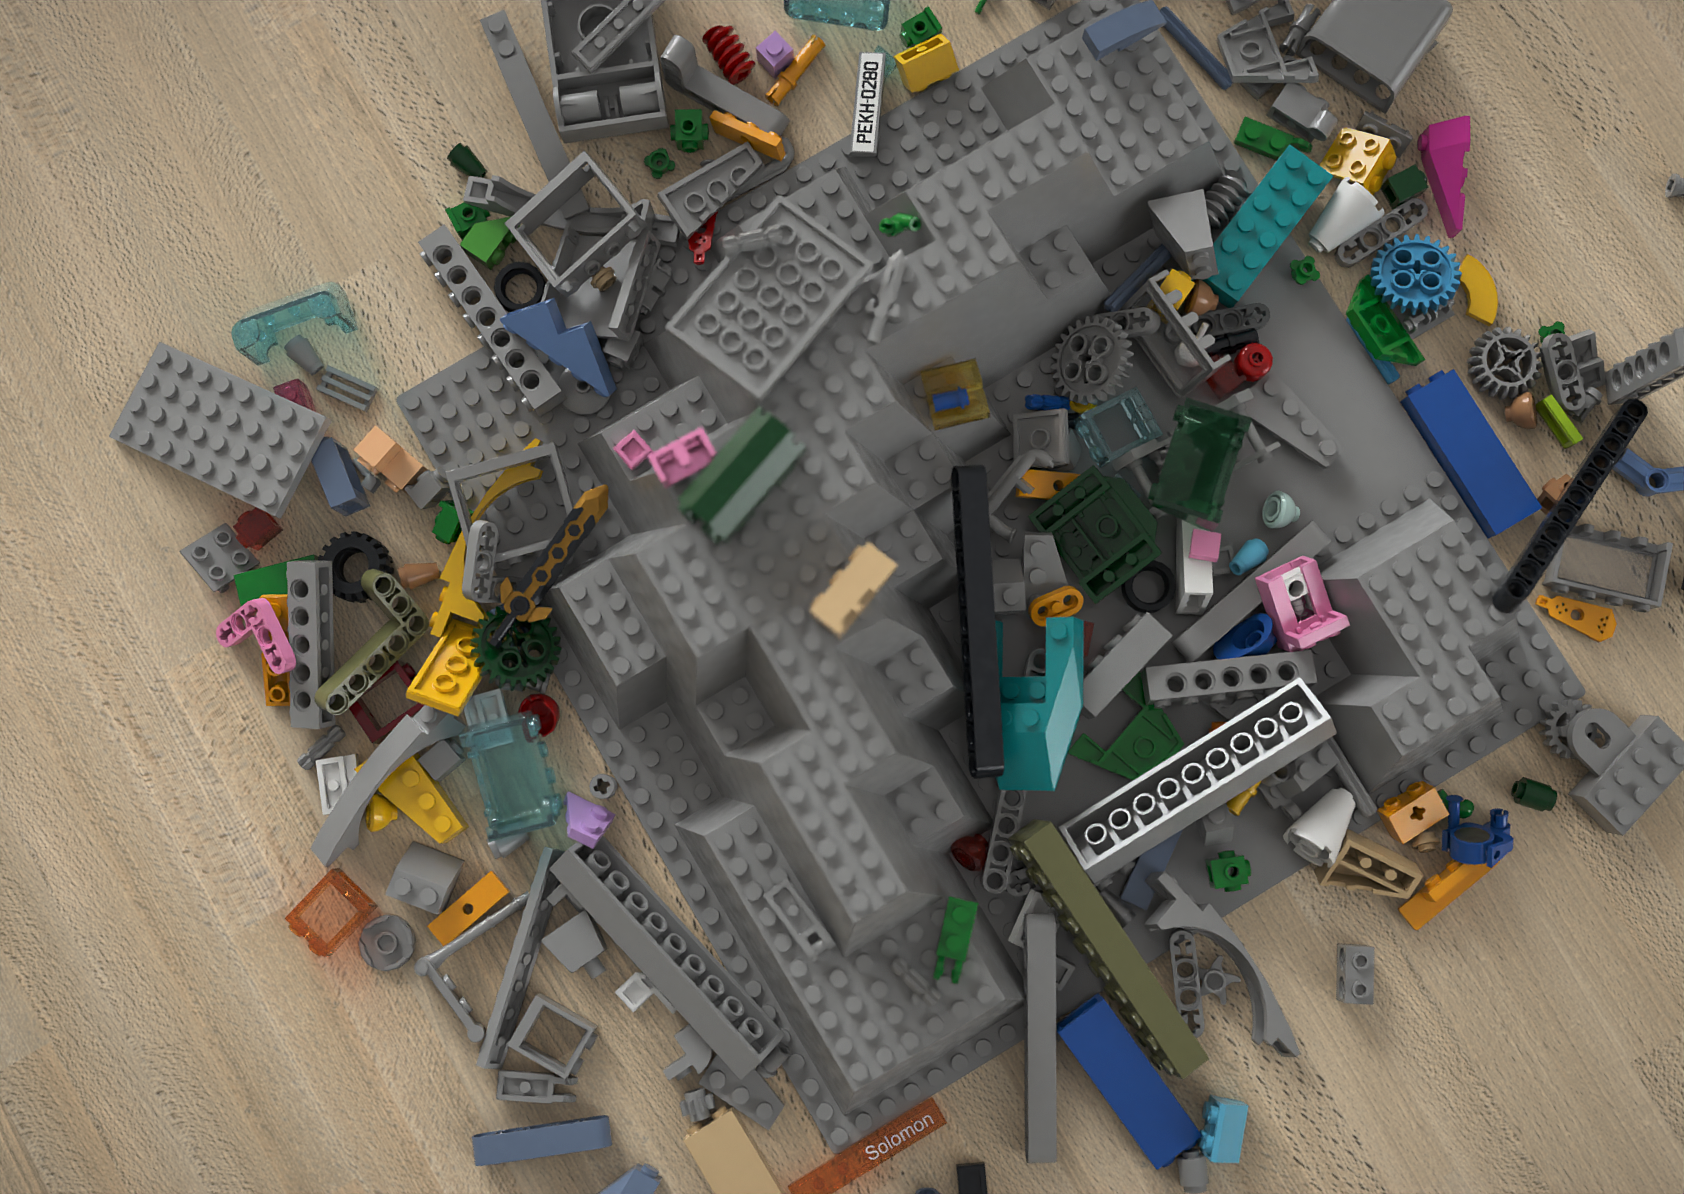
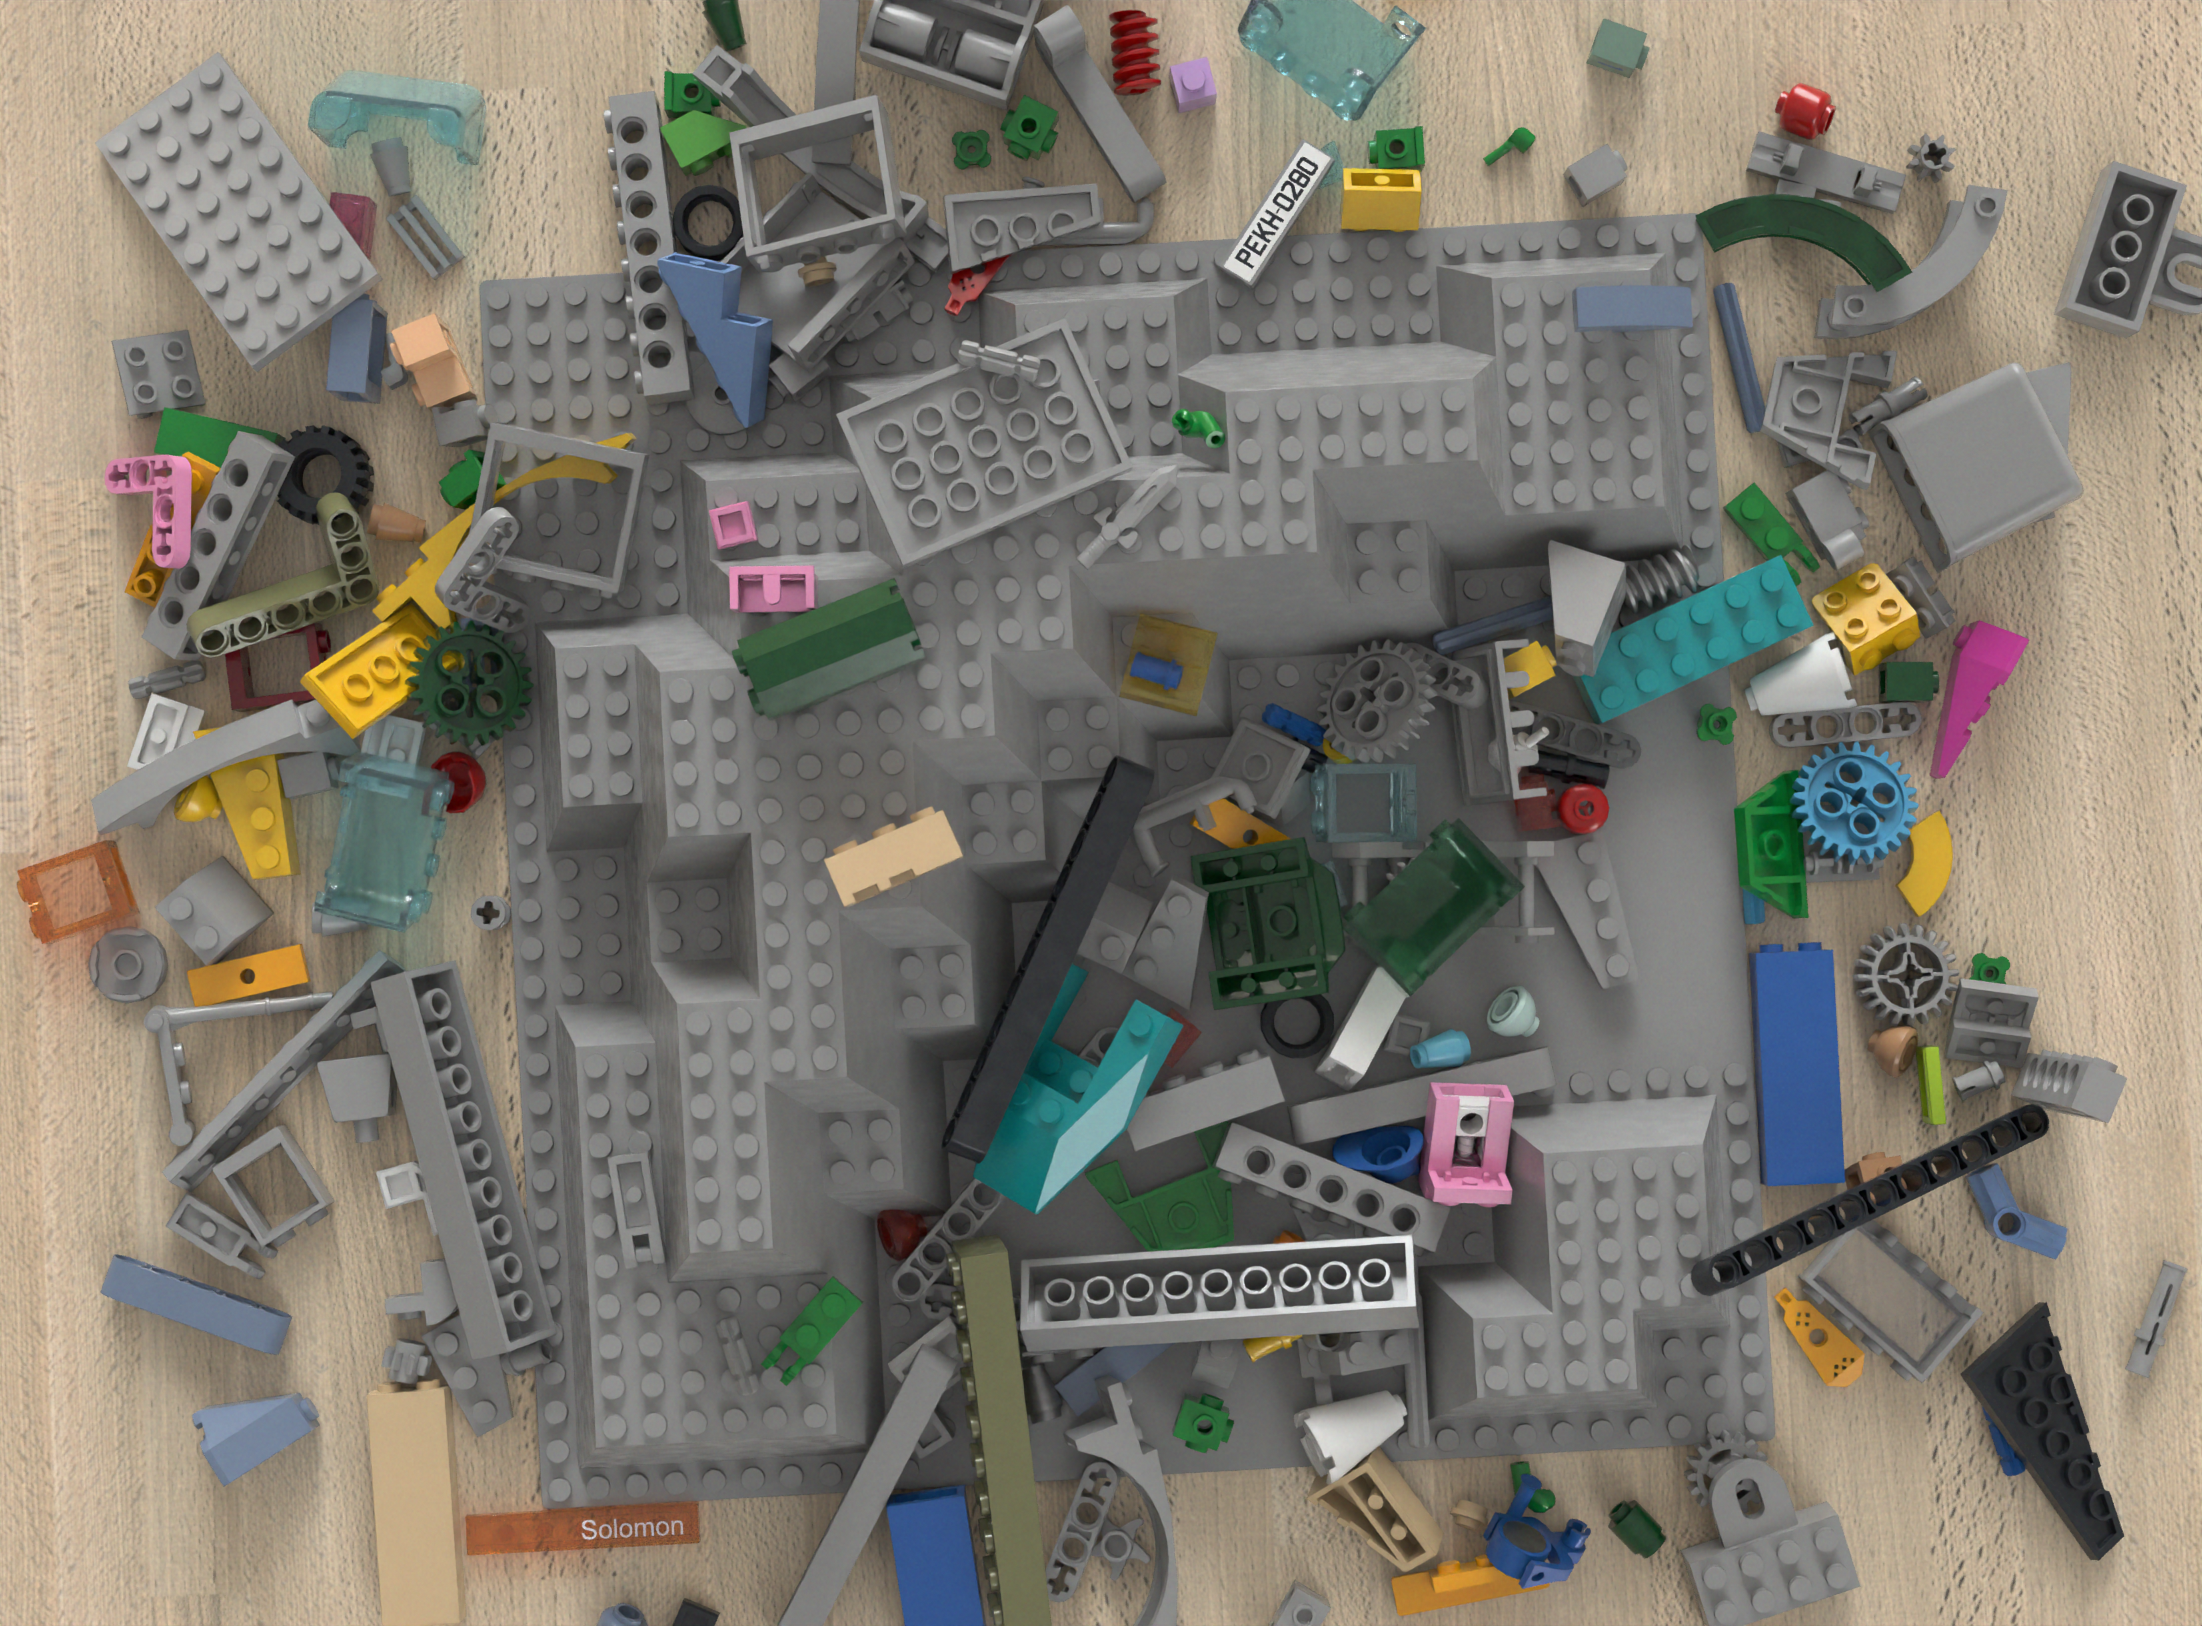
camera: 25 degrees right, 5 degrees up
(256, 528) = (220, 361): clear red brick -> none
(549, 565) = (558, 608): sword -> none
(586, 820) = (447, 944): lavender wing -> none
(741, 132) = (1102, 172): light orange tile -> none
(788, 78) = (1208, 118): light orange pin -> none
(1054, 604) = (1164, 987): light orange plate -> none
(1200, 299) = (1559, 694): medium nougat brick -> none
(1205, 545) = (1387, 1010): bright pink tile -> none
(1412, 811) = (1487, 1481): light orange brick -> none
(1574, 377) = (1984, 1001): light grey beam -> none

